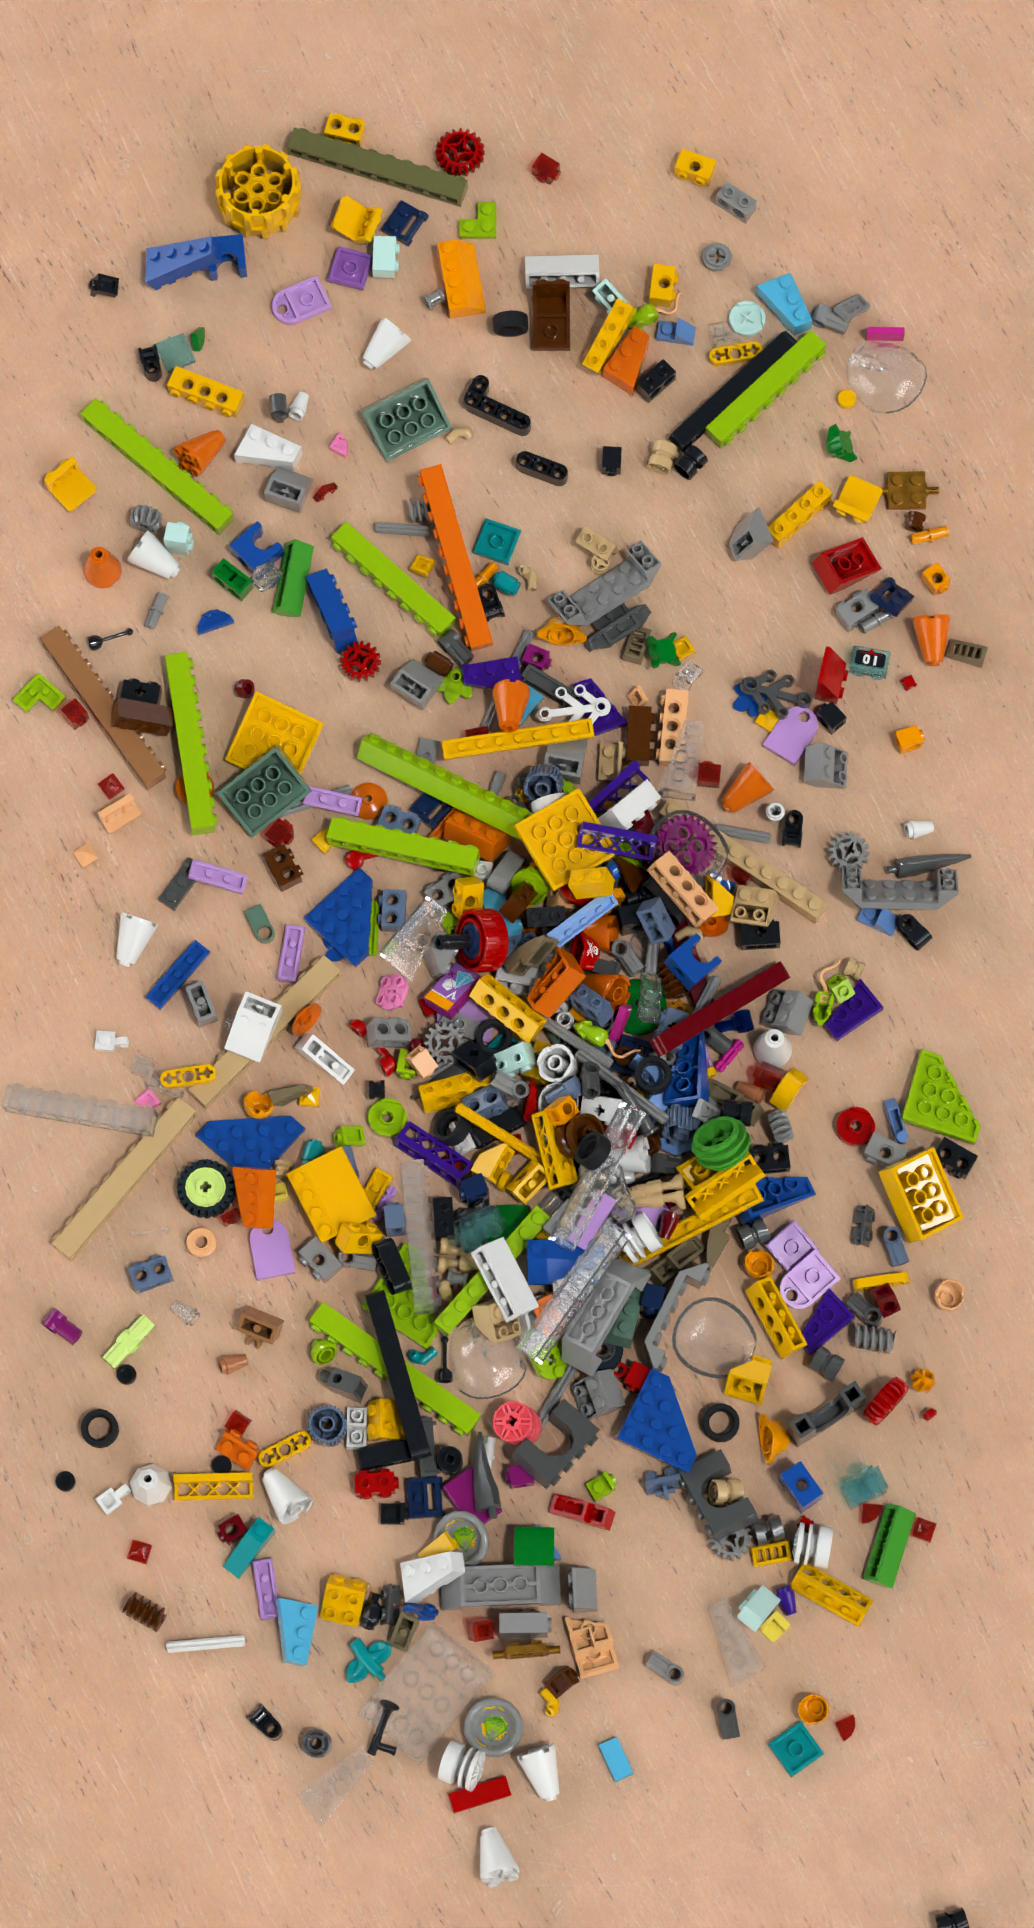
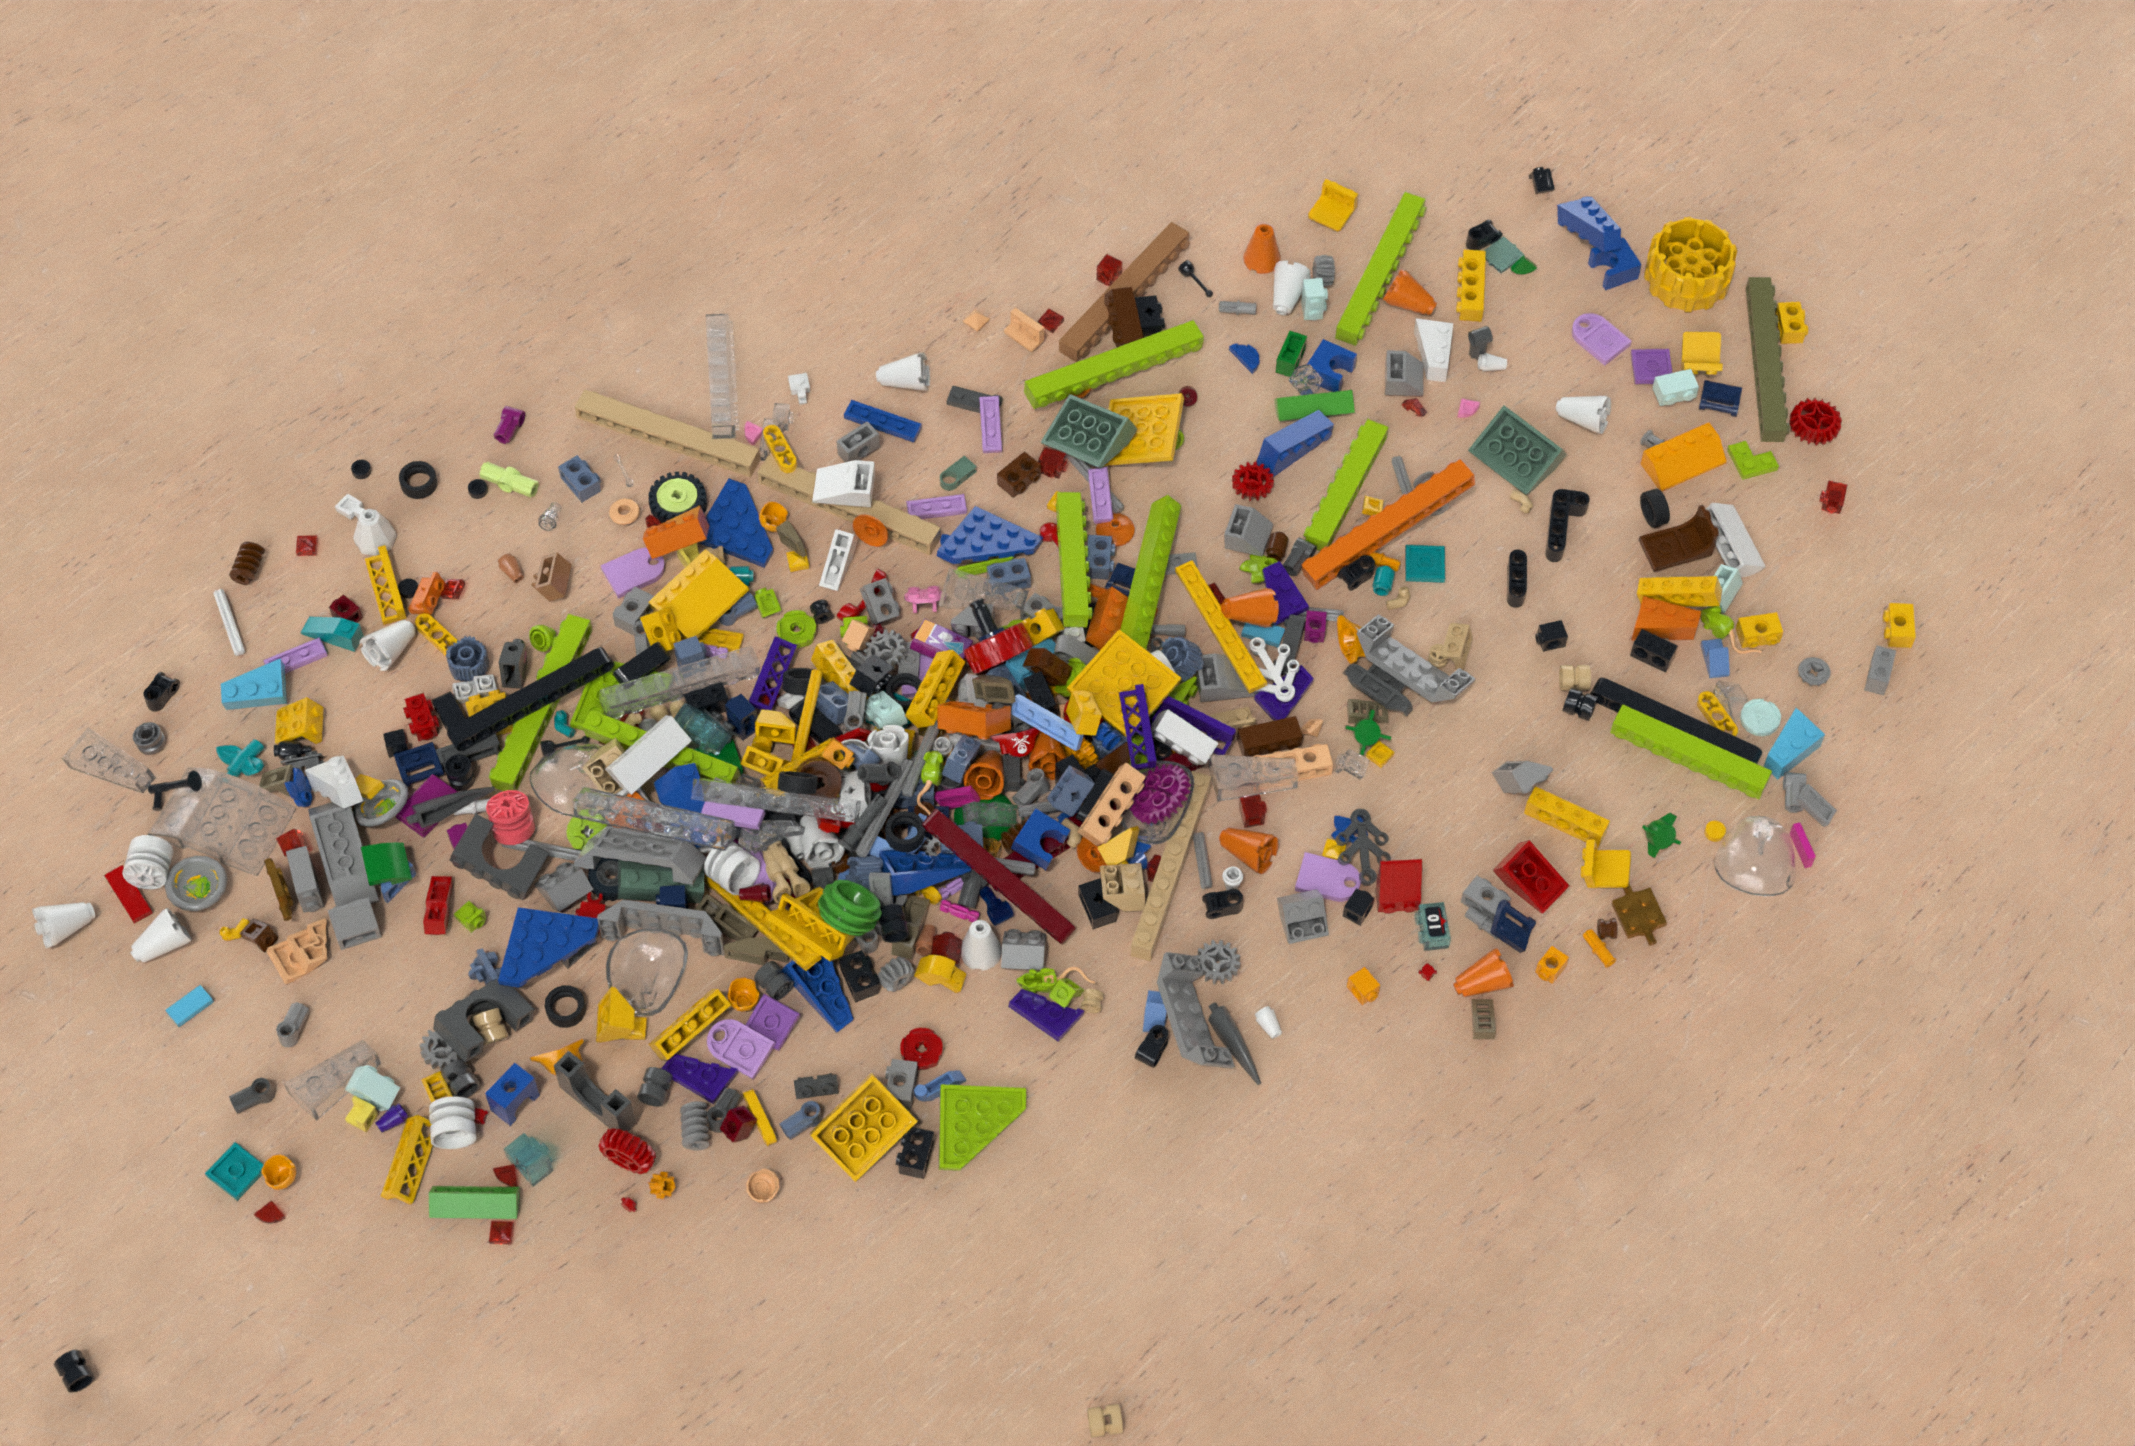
camera: 70 degrees right, 15 degrees down
(39, 690) = (1121, 239): lime plate -> none

